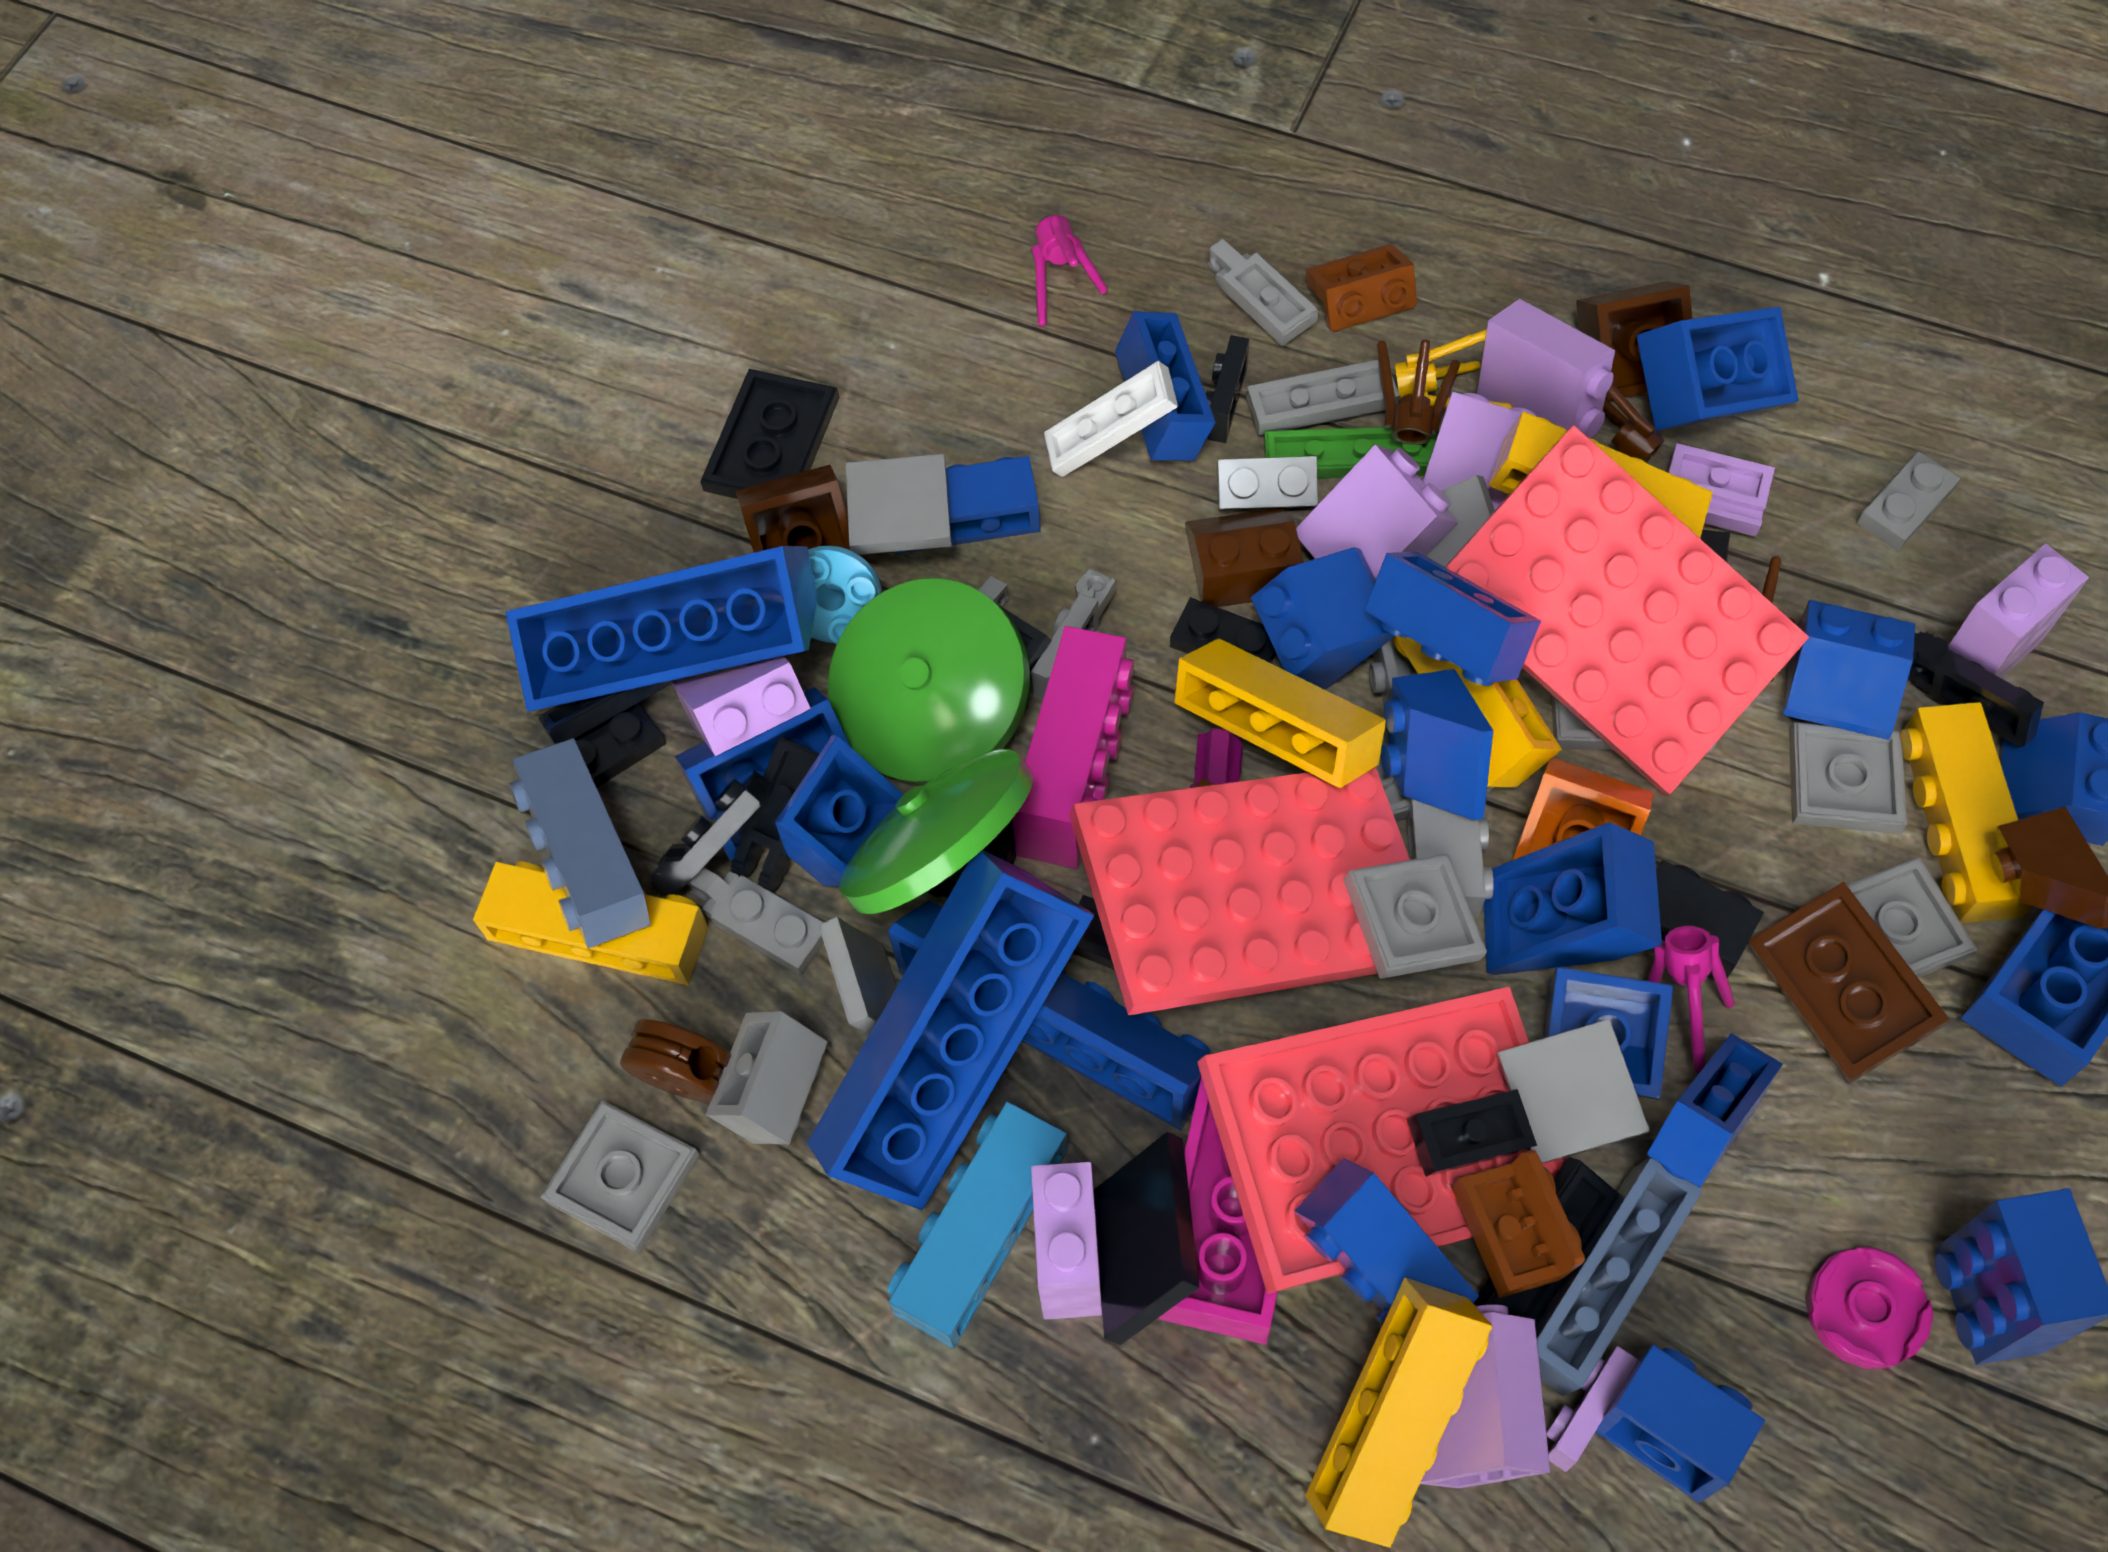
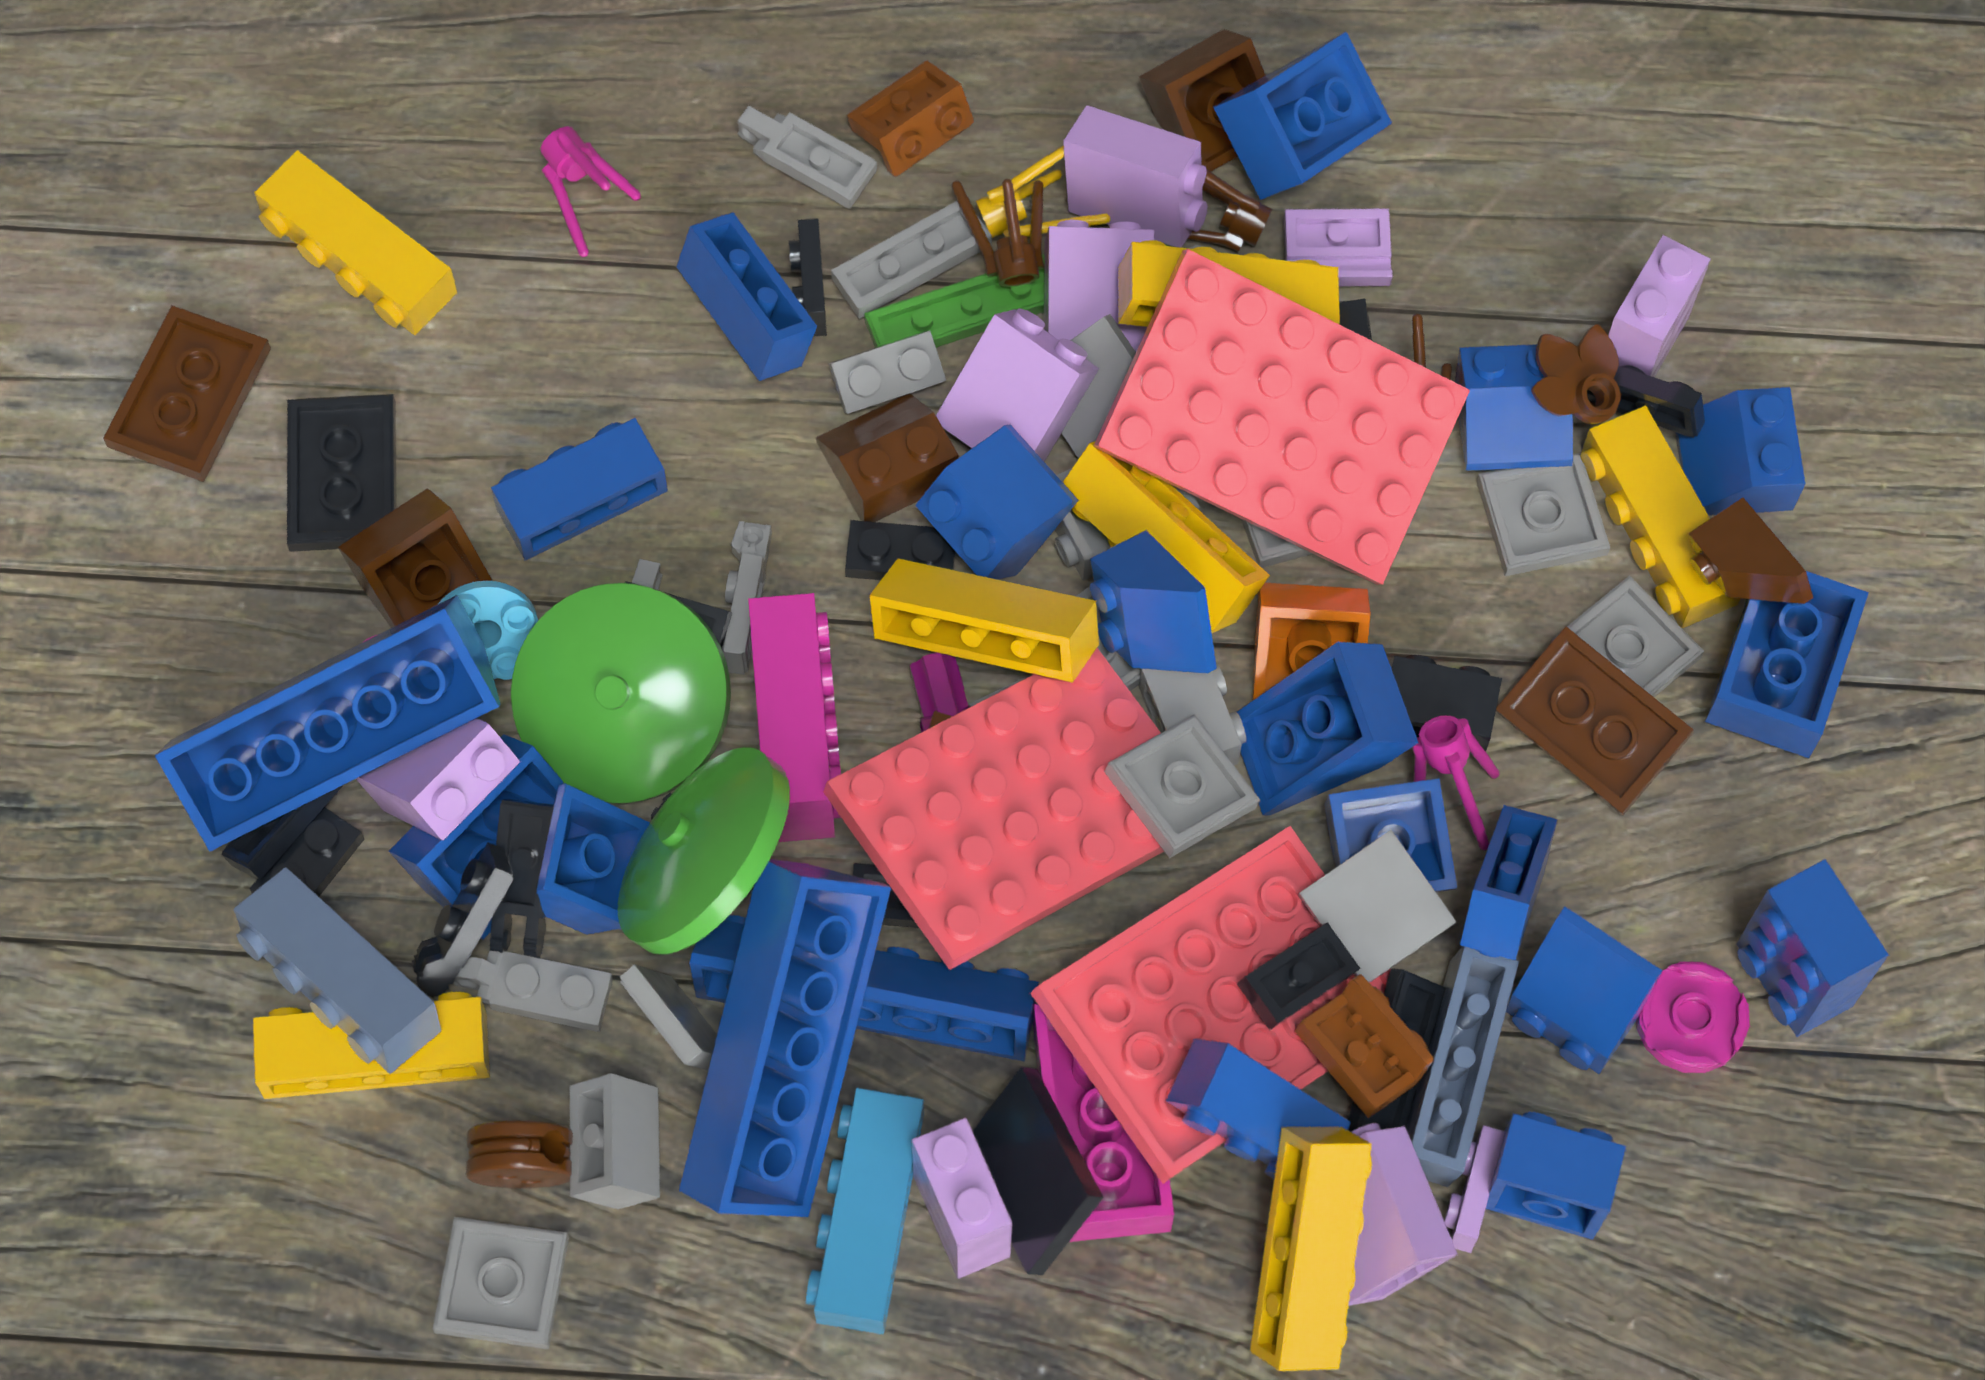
camera: 25 degrees left, 5 degrees up
(669, 342) = (187, 393): none -> reddish brown plate
(854, 263) = (355, 244): none -> yellow brick
(898, 504) = (520, 513): light grey tile -> none
(1110, 419) = (705, 352): white tile -> none
(1452, 618) = (1127, 479): blue brick -> none
(1762, 1242) = (1582, 992): none -> blue slope
(1908, 501) = (1527, 204): light grey plate -> none
(1920, 648) = (1574, 370): none -> reddish brown plate

